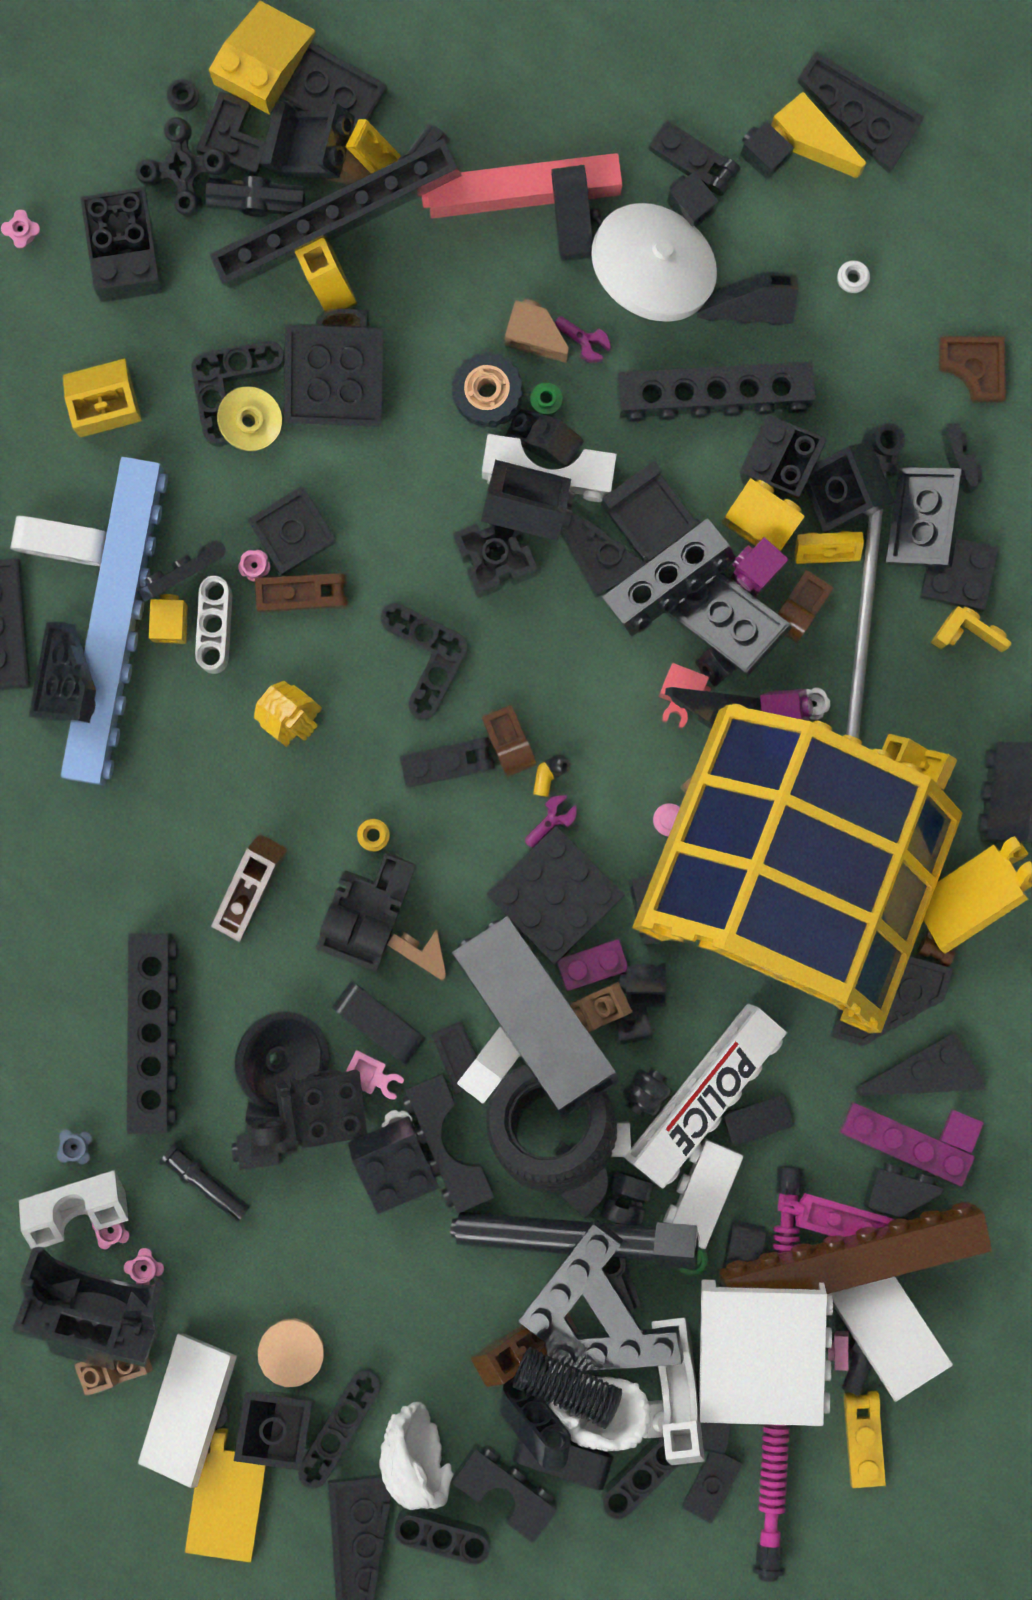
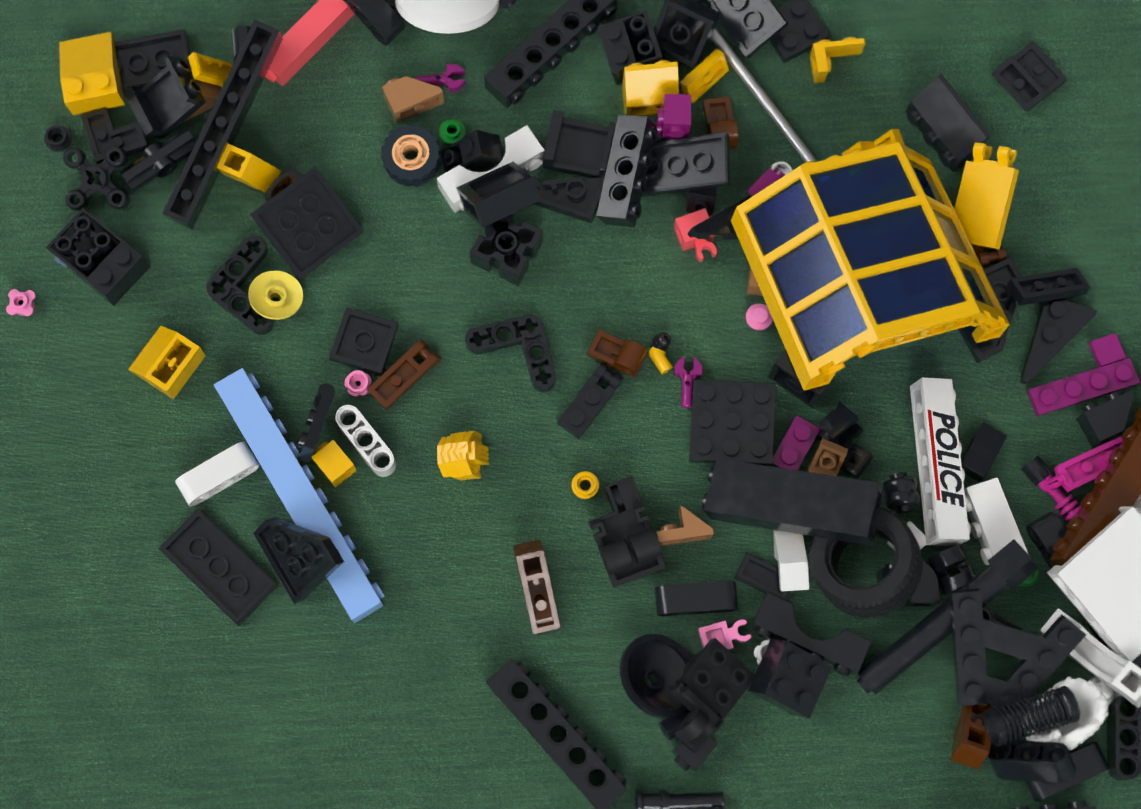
camera: 40 degrees left, 10 degrees down
(960, 1026) = (1048, 286): none -> black plate

